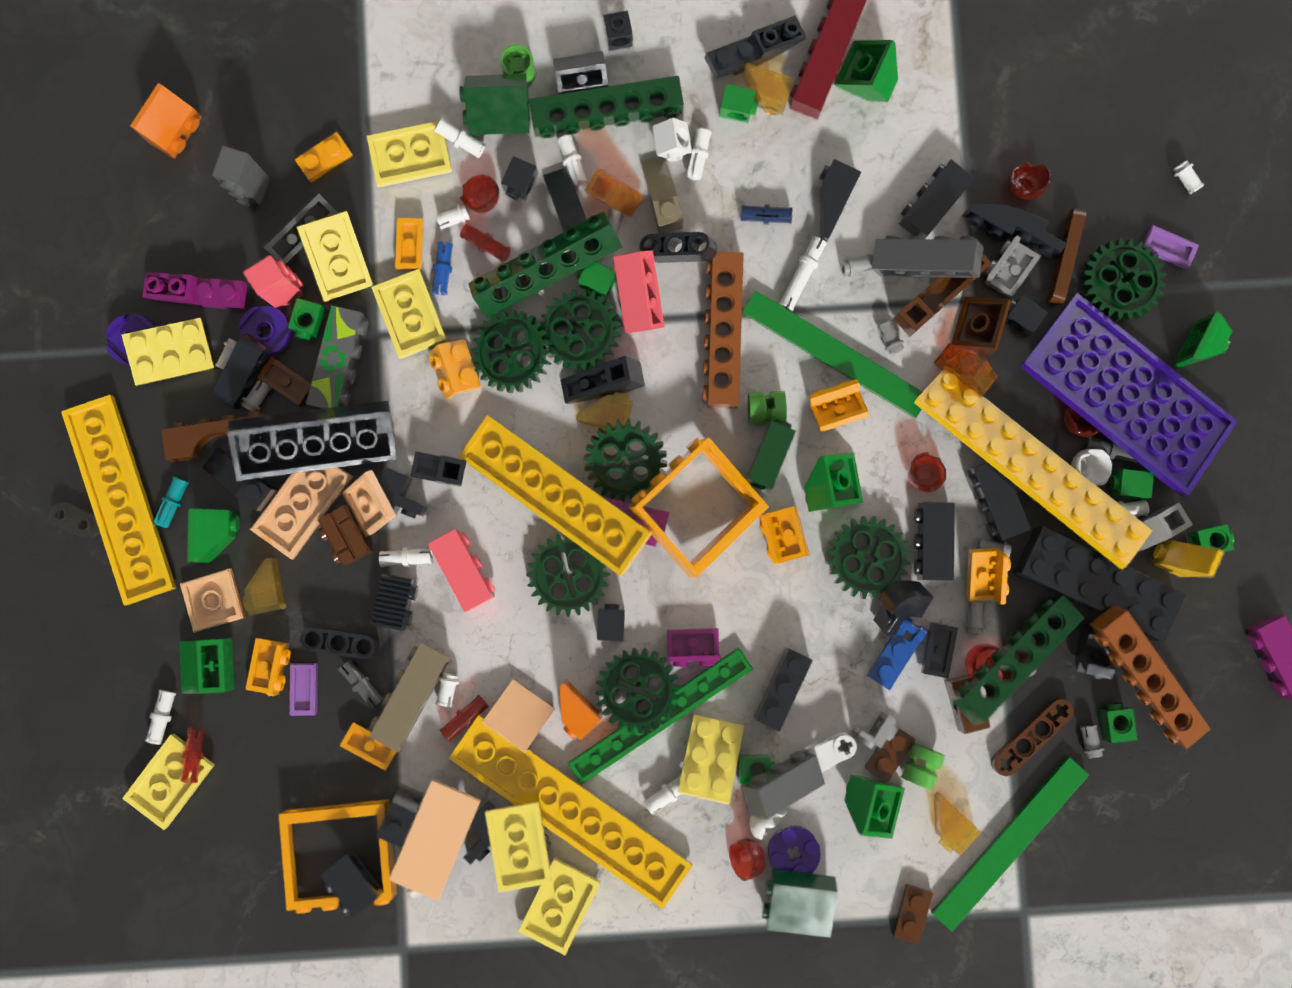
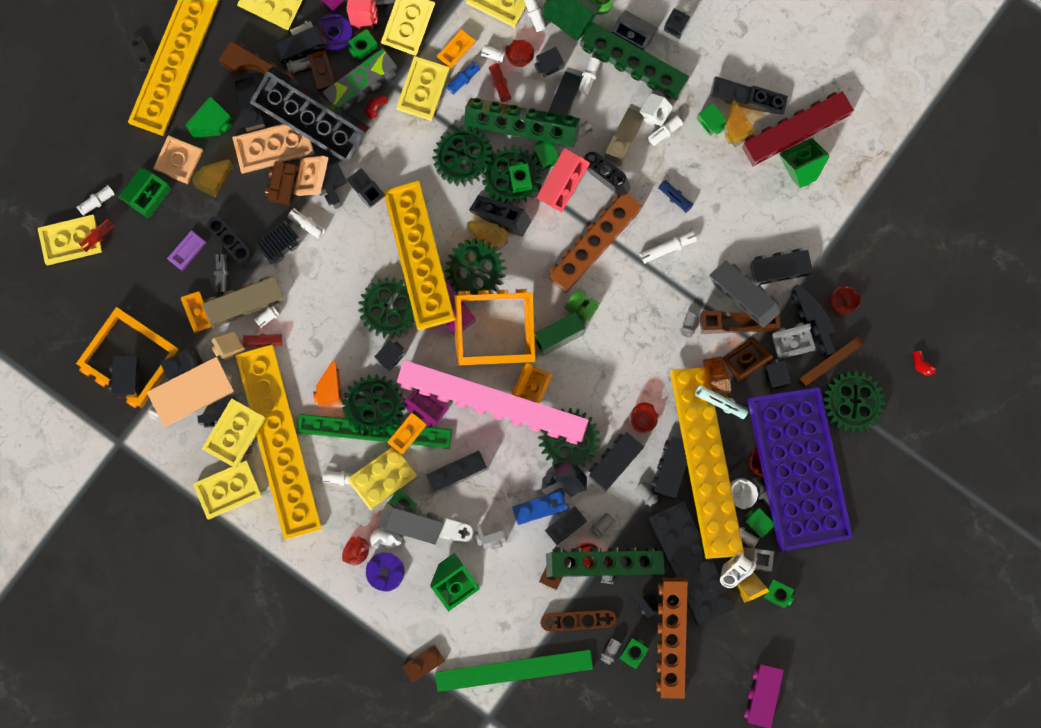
camera: 40 degrees right, 5 degrees down
(170, 502) = (201, 86): teal axle -> none
(268, 666) = (178, 221): light orange bracket -> none
(372, 375) = (373, 106): none -> red arm
(433, 757) = (227, 346): none -> tan slope
(454, 368) = (422, 139): light orange bracket -> none
(462, 569) = (331, 256): coral brick -> none
(518, 715) = (294, 363): light nougat tile -> none
(598, 335) = (520, 185): none -> green brick
(614, 192) = (597, 112): clear orange slope -> none
(698, 692) = (407, 433): none -> light orange plate
(762, 585) = (492, 401): none -> bright pink brick
(800, 903) = (364, 599): brick -> none
(833, 353) = (647, 306): green tile -> none
(833, 483) = (585, 380): green slope -> none
(834, 193) = (728, 214): black slope -> none
(837, 405) = (624, 338): light orange bracket -> none
(855, 265) = (703, 267): light grey pin -> none
(888, 758) = (488, 561): reddish brown plate -> none
(916, 773) = (500, 582): bright green wheel -> none
(952, 826) = (488, 631): clear yellow slope -> none
(987, 575) = (628, 504): light orange bracket -> none
(1001, 388) = (737, 409): none -> light aqua pin
(1158, 187) = (922, 366): none -> red arm
(1158, 554) = (736, 570): none -> white piece
(1170, 247) = (899, 406): medium lavender tile -> none
(1188, 177) = (944, 374): white pin -> none
(1205, 340) = (872, 476): green slope -> none

